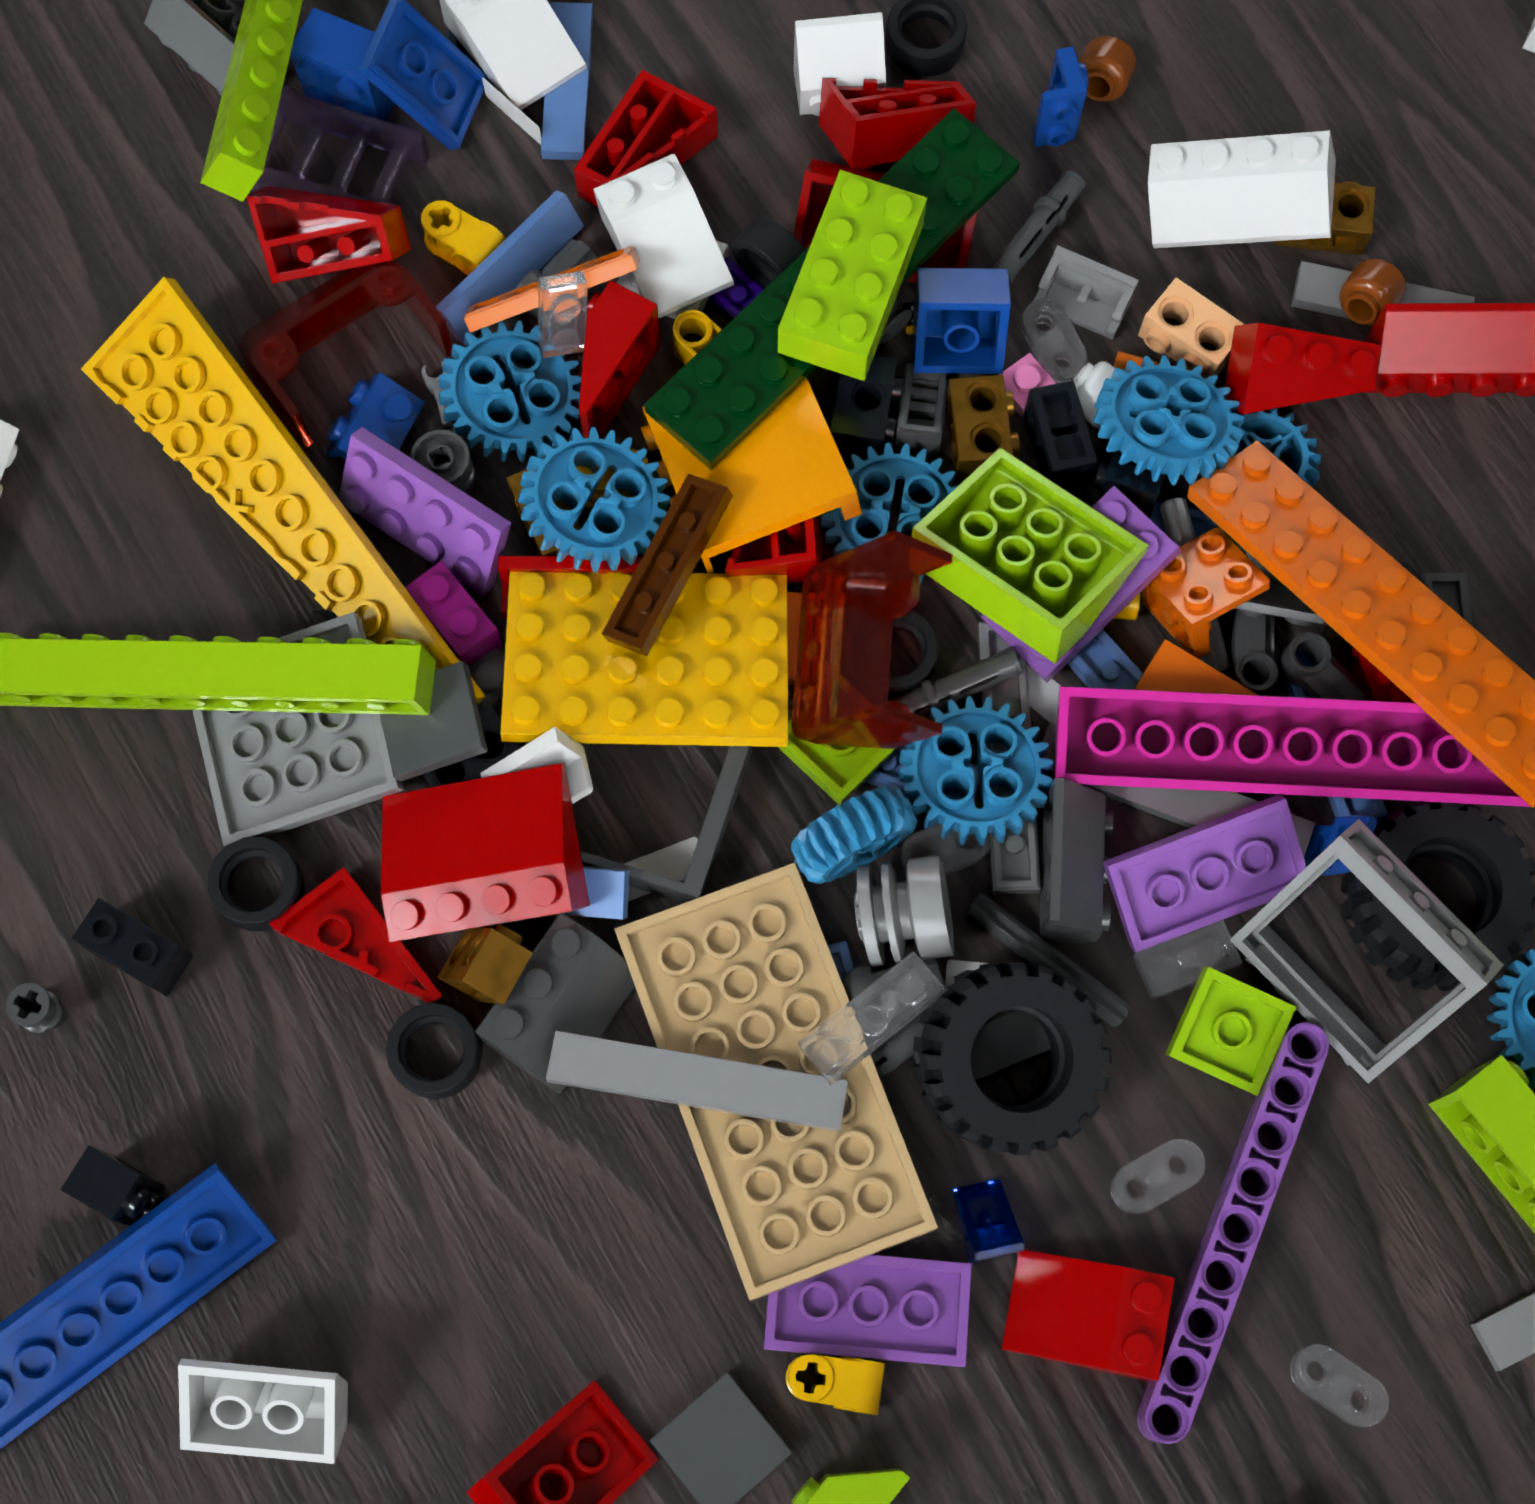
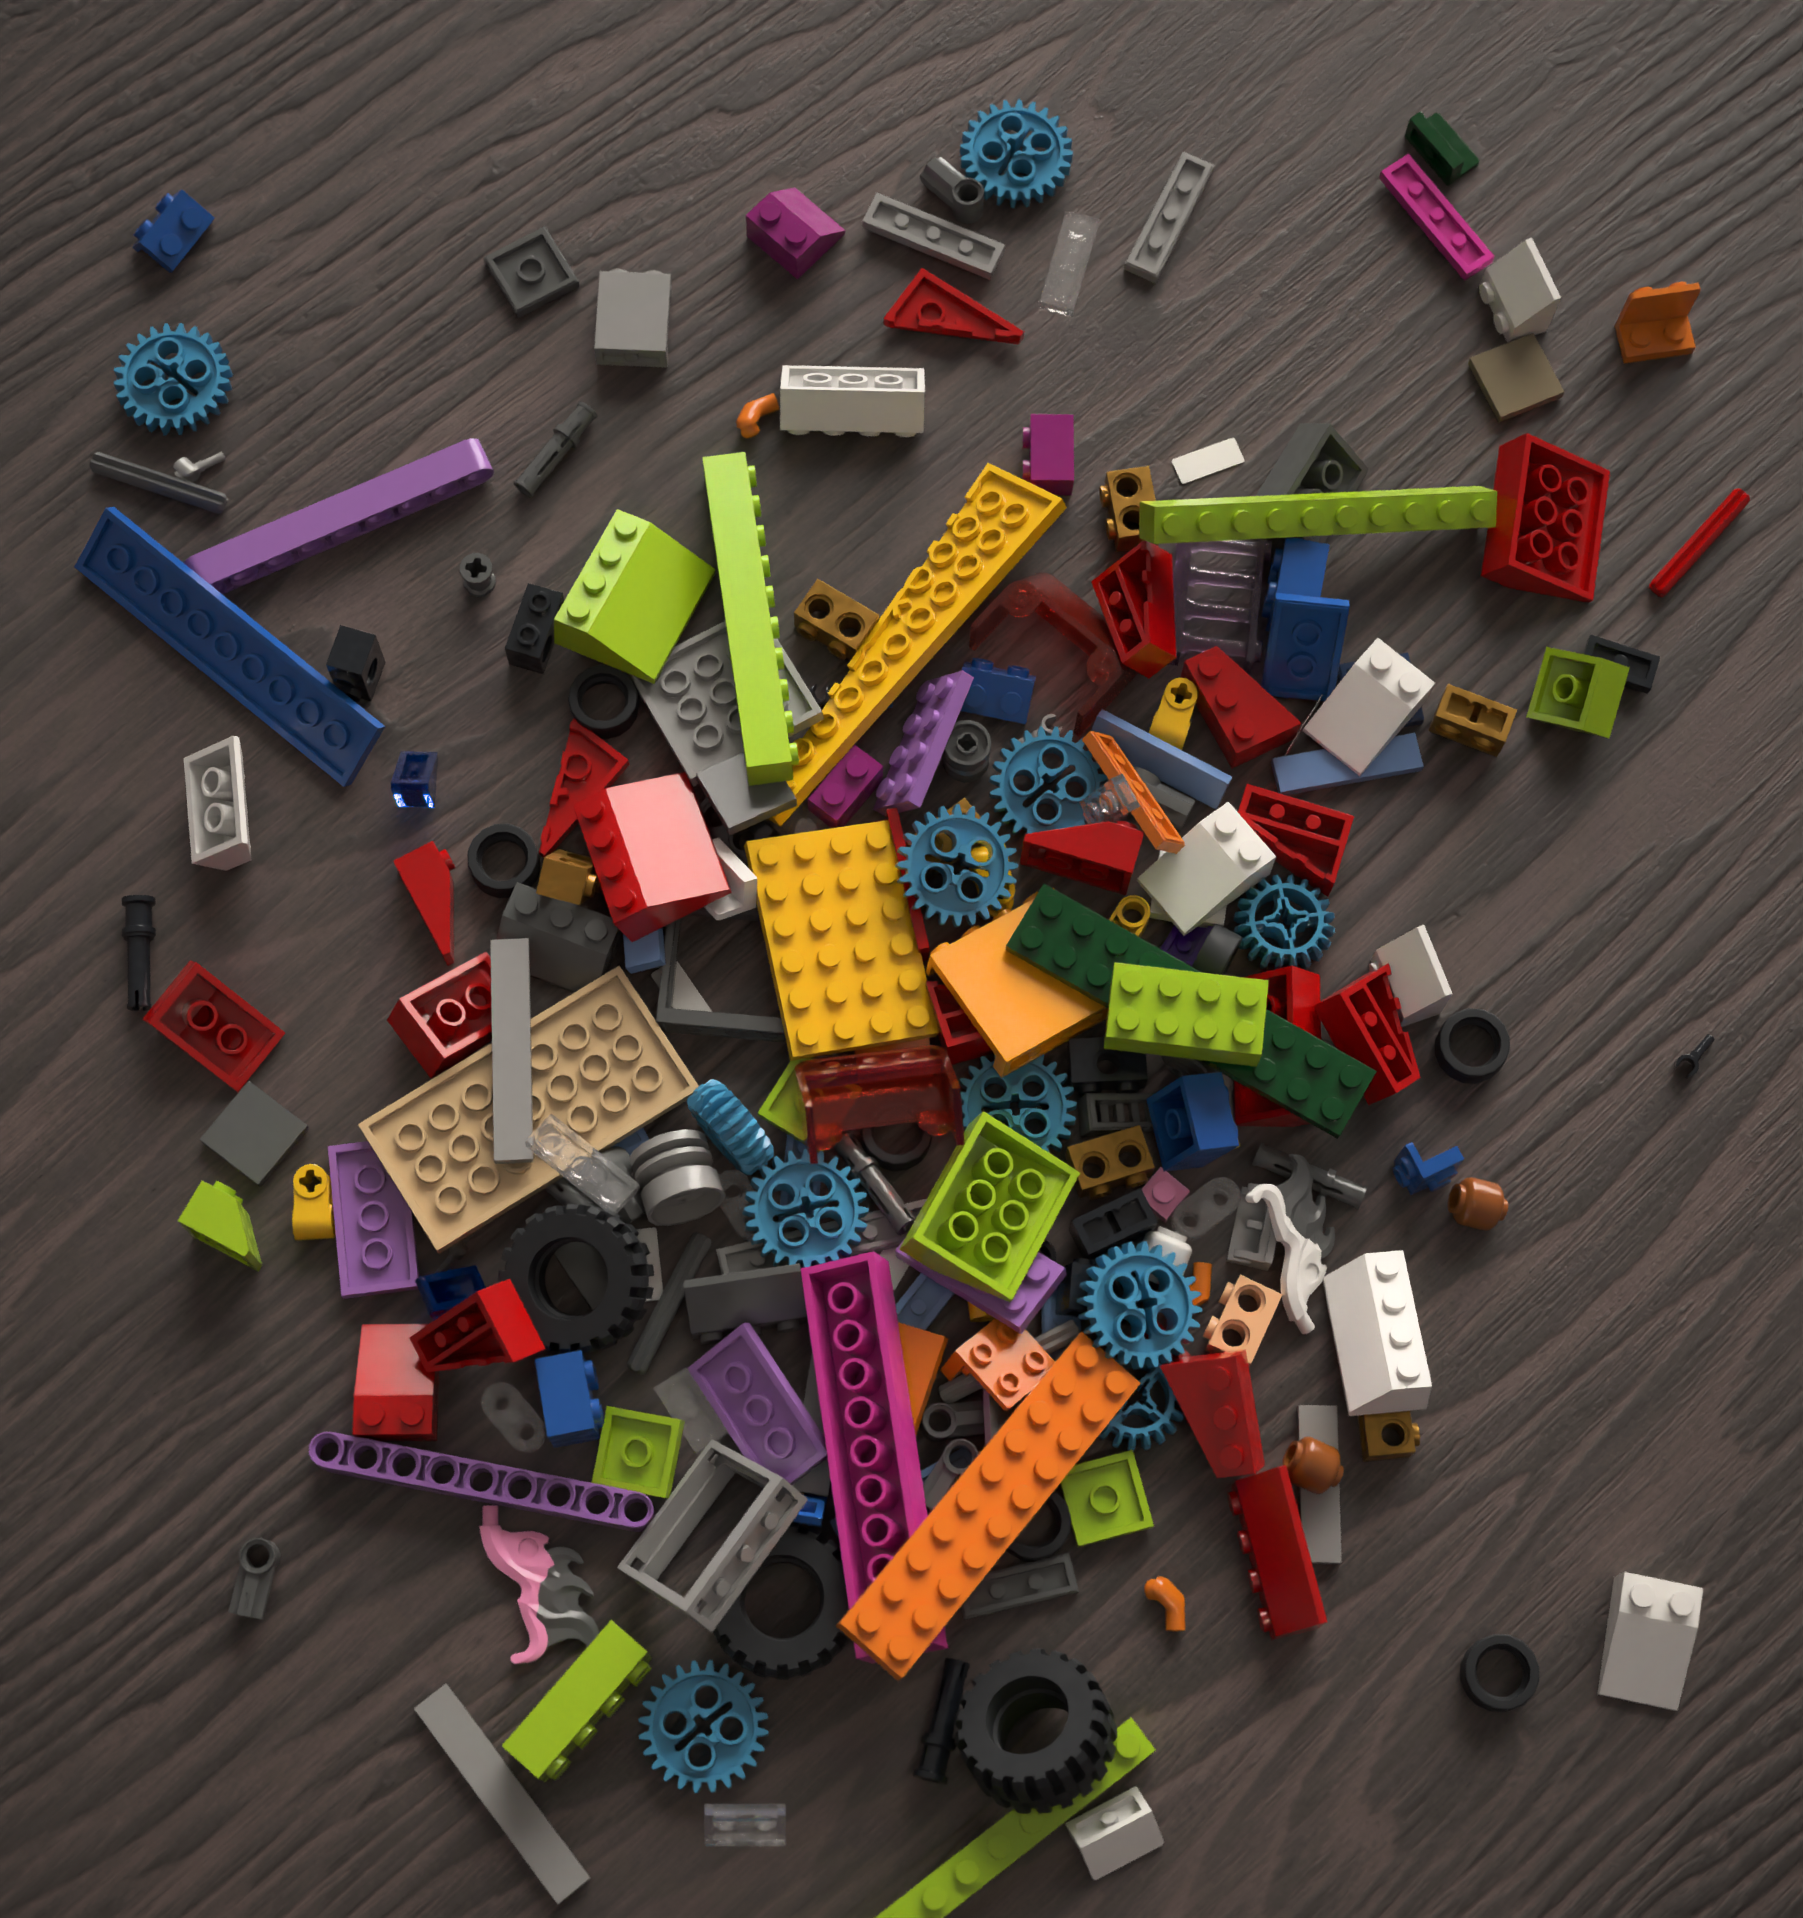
camera: 75 degrees right, 0 degrees up
(89, 295) = (1050, 452): none -> magenta brick
(131, 815) = (632, 598): none -> lime slope
(154, 139) = (1208, 460): none -> white sticker
(193, 216) = (1122, 508): none -> pearl gold brick
(223, 575) = (842, 614): none -> pearl gold brick
(291, 1142) = (415, 779): none -> clear blue slope
(448, 1150) = (432, 890): none -> red slope
(473, 168) = (1237, 708): none -> red wedge
(626, 1156) = (447, 1016): none -> red slope
(667, 564) = (910, 931): reddish brown plate -> none
(767, 189) = (1313, 916): none -> dark azure gear
(1065, 1186) = (479, 1331): none -> red wedge
(1112, 245) = (1300, 1229): none -> white piece
(1159, 1097) = (568, 1399): none -> blue brick
(1338, 1384) = (378, 1583): clear plate -> none
(1371, 1176) = (548, 1586): none -> piece
(1379, 508) = (1106, 1499): none -> lime plate
(1491, 478) = (1171, 1598): none -> orange arm

